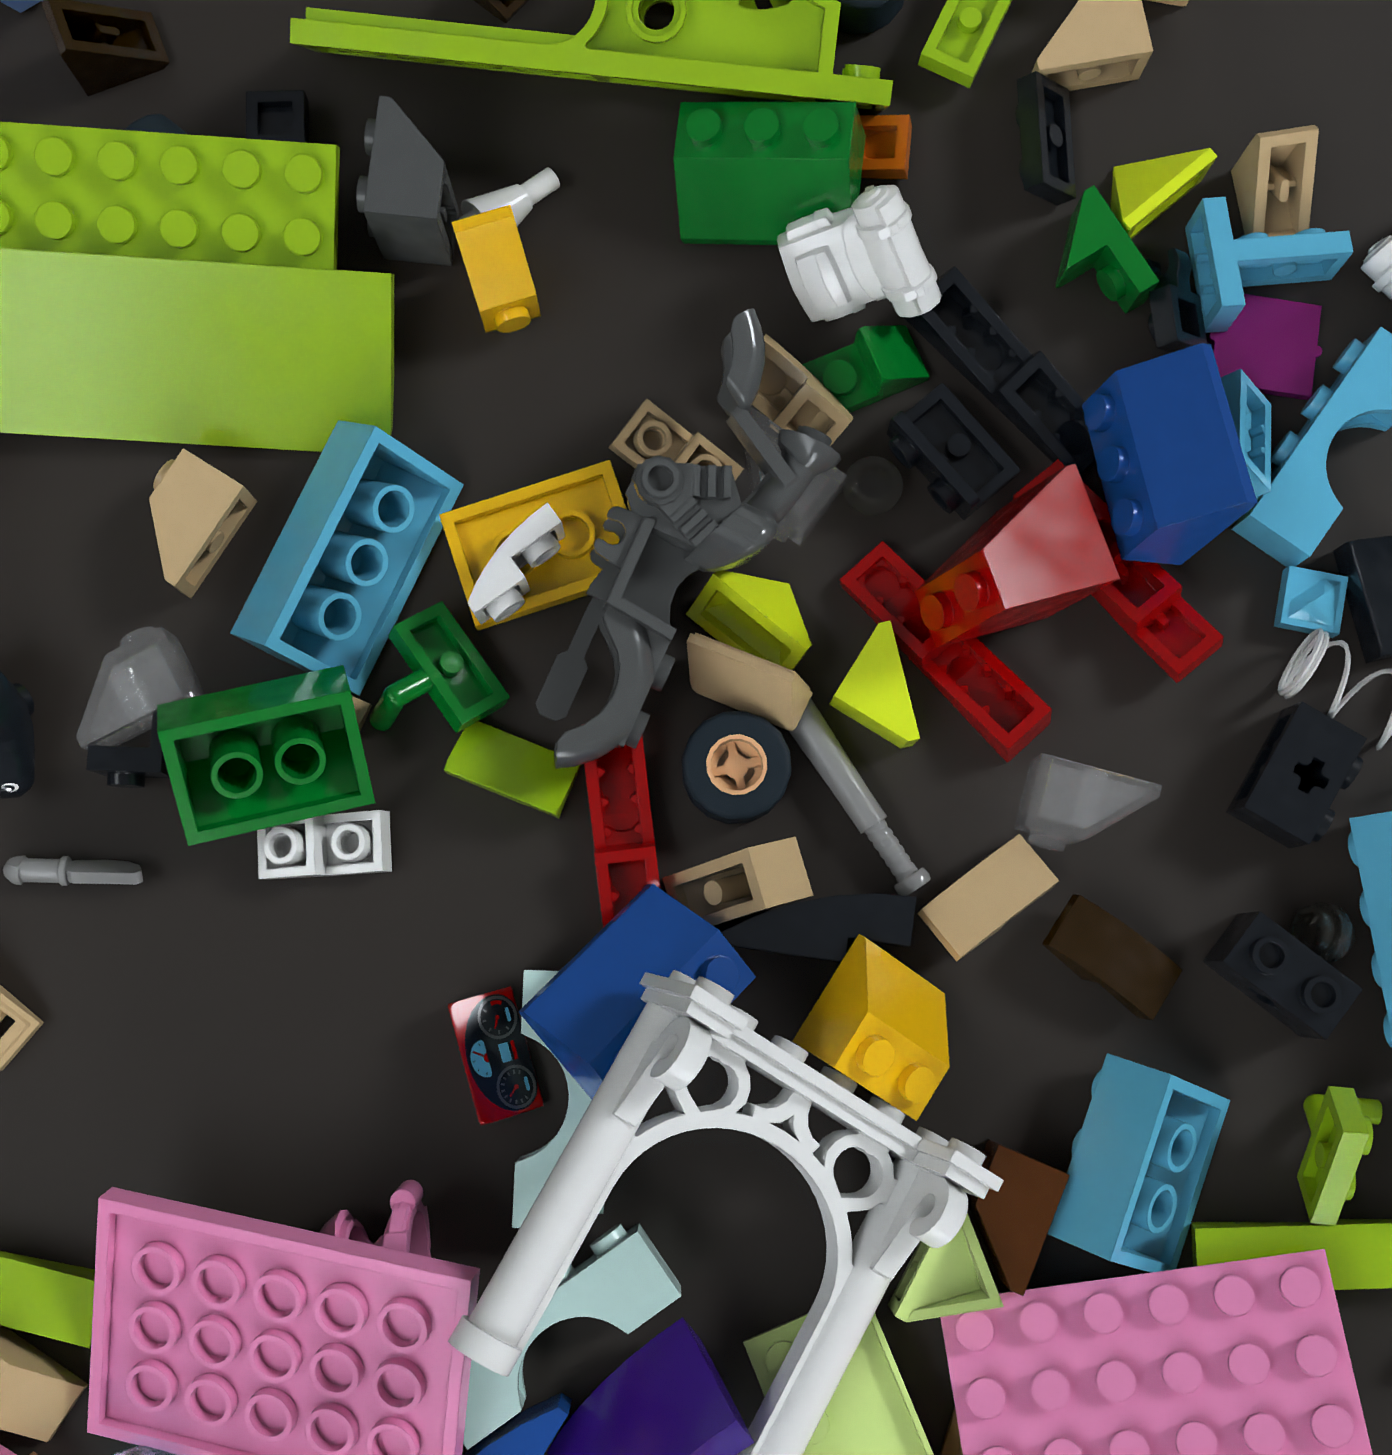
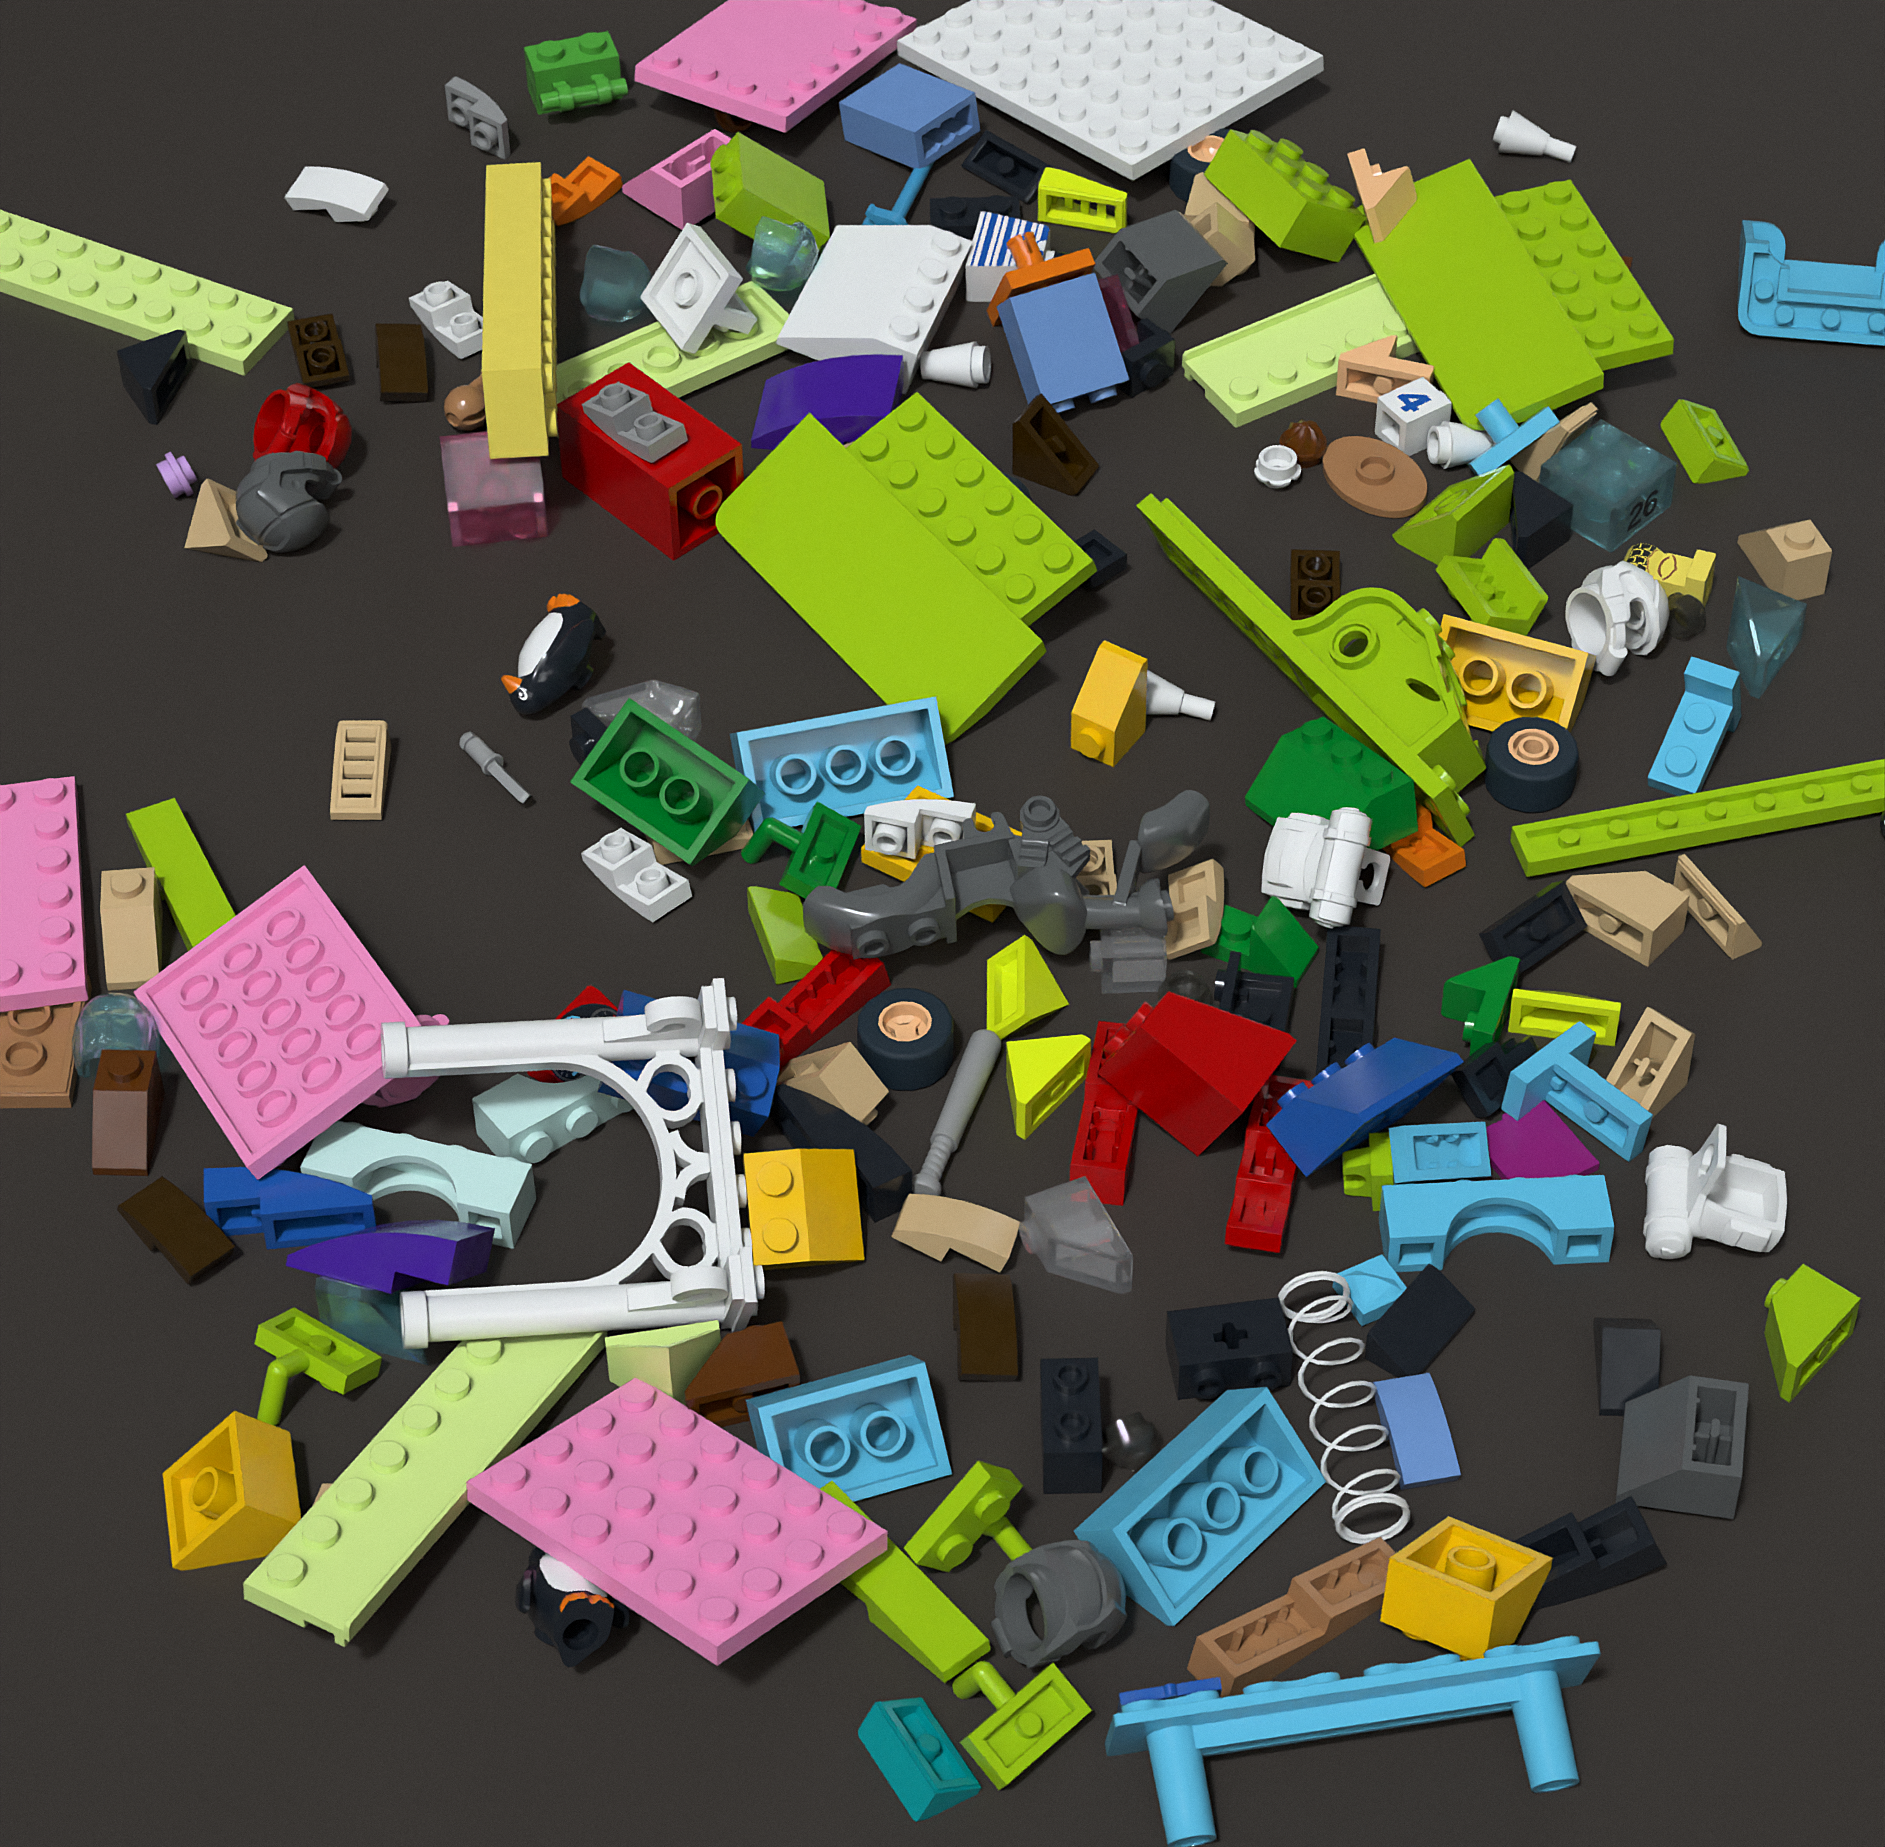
camera: 55 degrees right, 35 degrees down
(195, 518) = (785, 679): tan slope -> none
(406, 191) = (1108, 611): dark grey slope -> none
(746, 682) = (971, 1000): tan slope -> none

